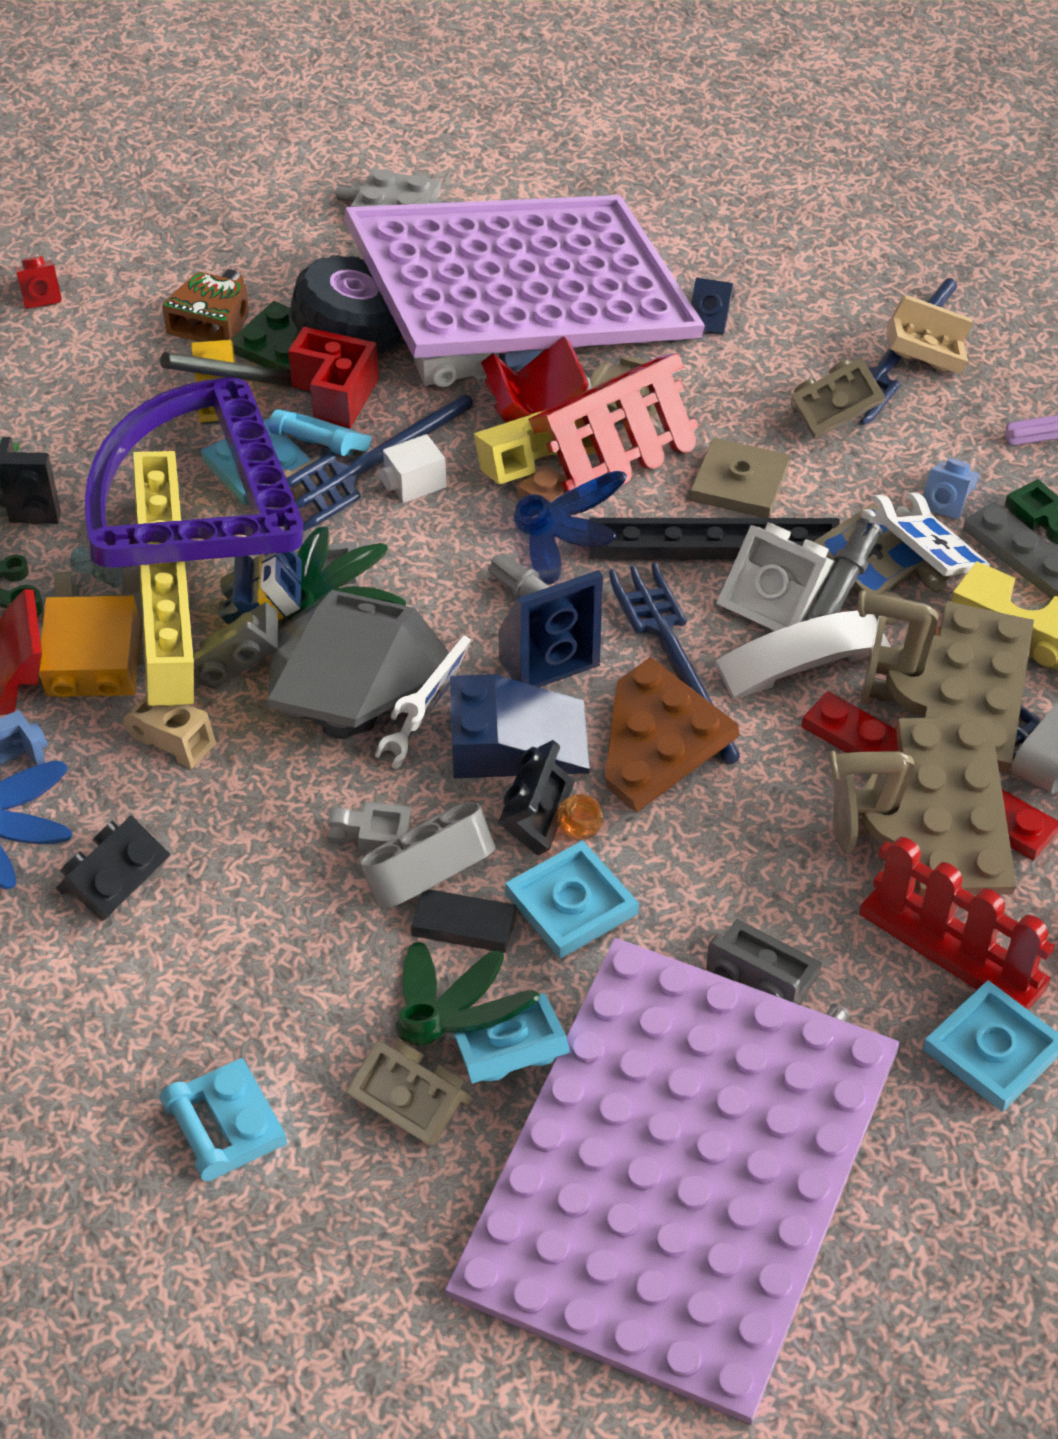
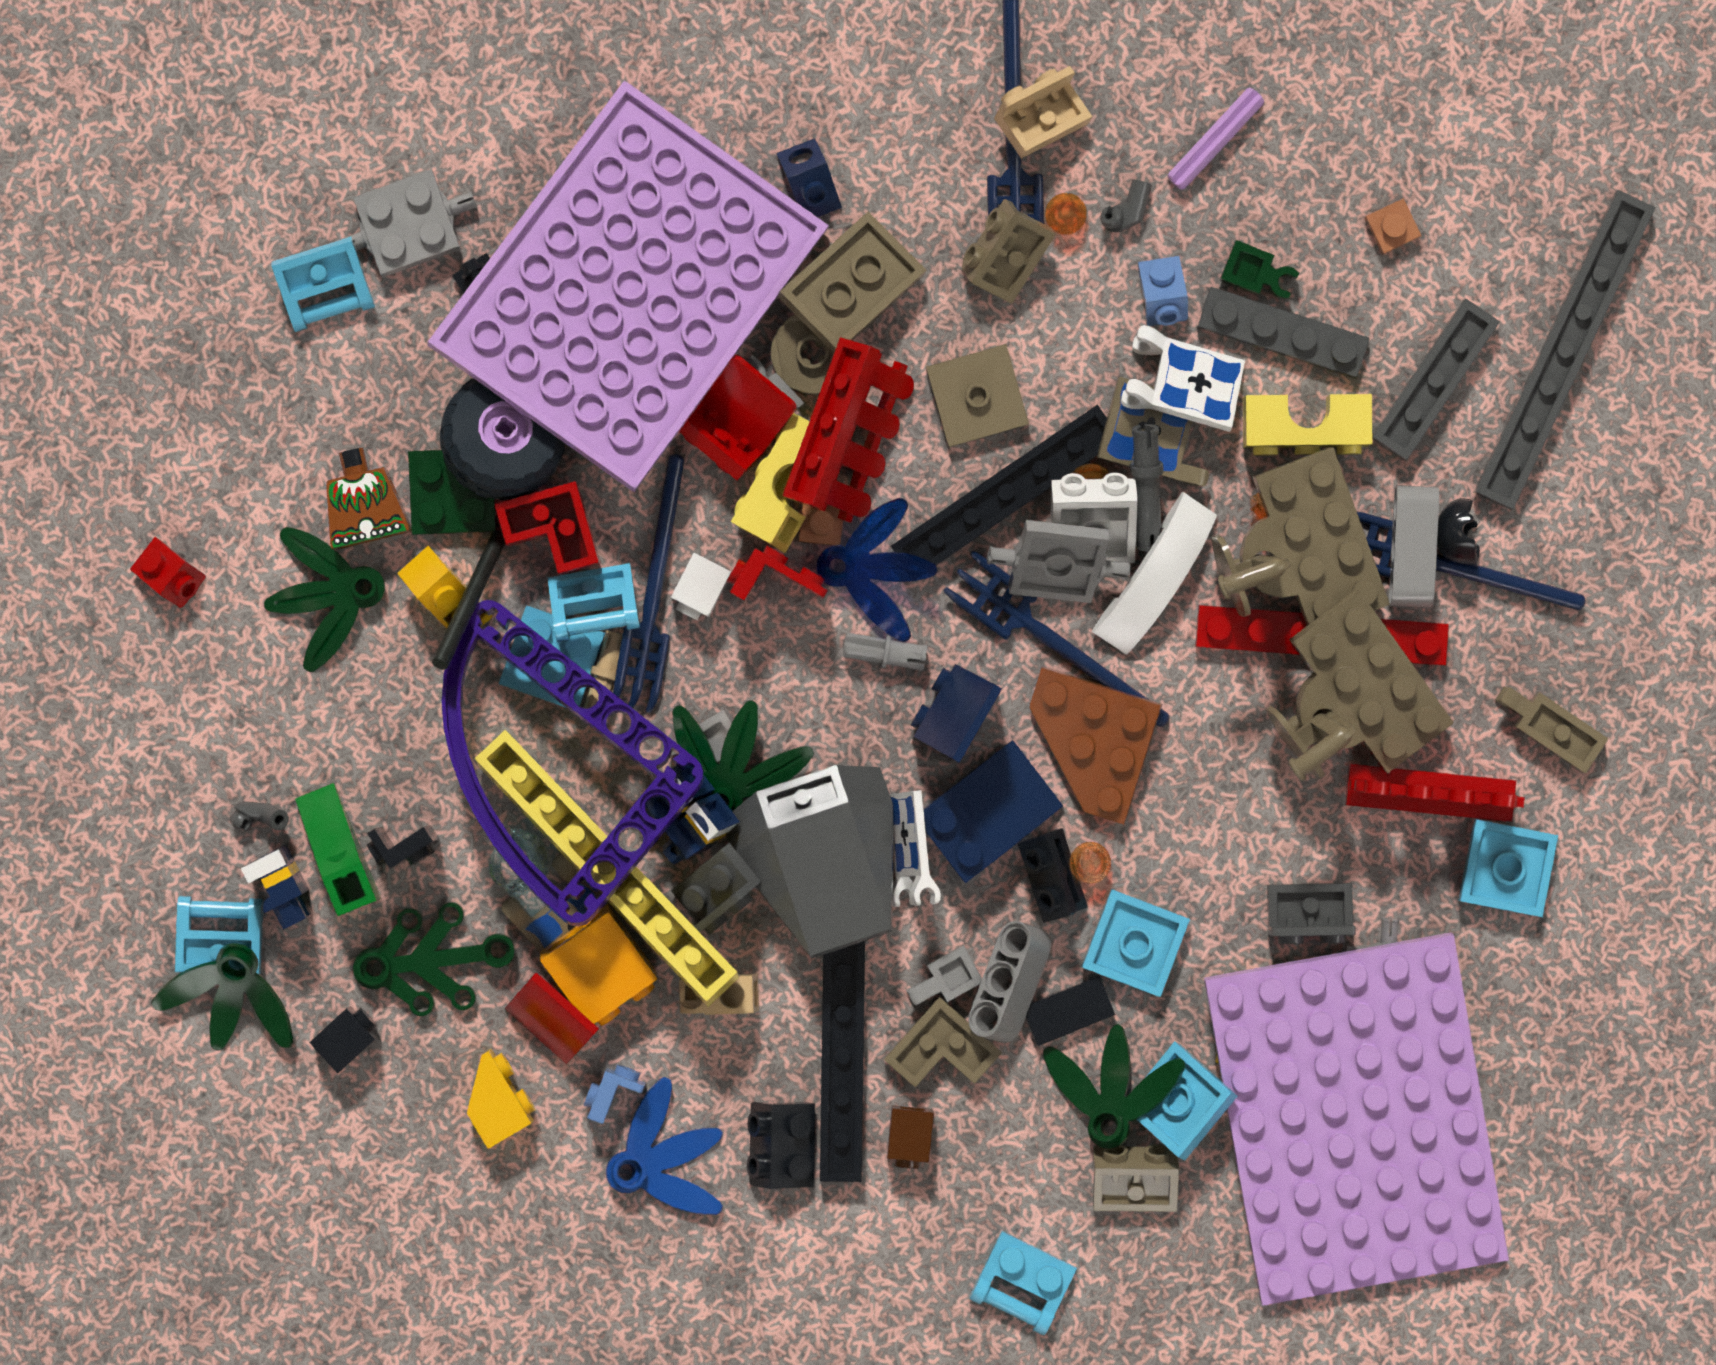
camera: 35 degrees left, 40 degrees up
(137, 347) = (318, 595): none -> dark green plant
(225, 835) = (842, 1064): none -> black plate
(230, 922) = (910, 1136): none -> reddish brown brick
(307, 182) = (319, 272): none -> medium azure plate
(325, 865) = (938, 1035): none -> dark tan plate
(469, 467) = (746, 574): none -> red bracket
(708, 357) = (852, 282): none -> dark tan plate
(724, 584) = (1058, 561): none -> light grey plate
(902, 409) = (1065, 213): none -> clear orange plate
(956, 434) = (1128, 212): none -> dark grey arm

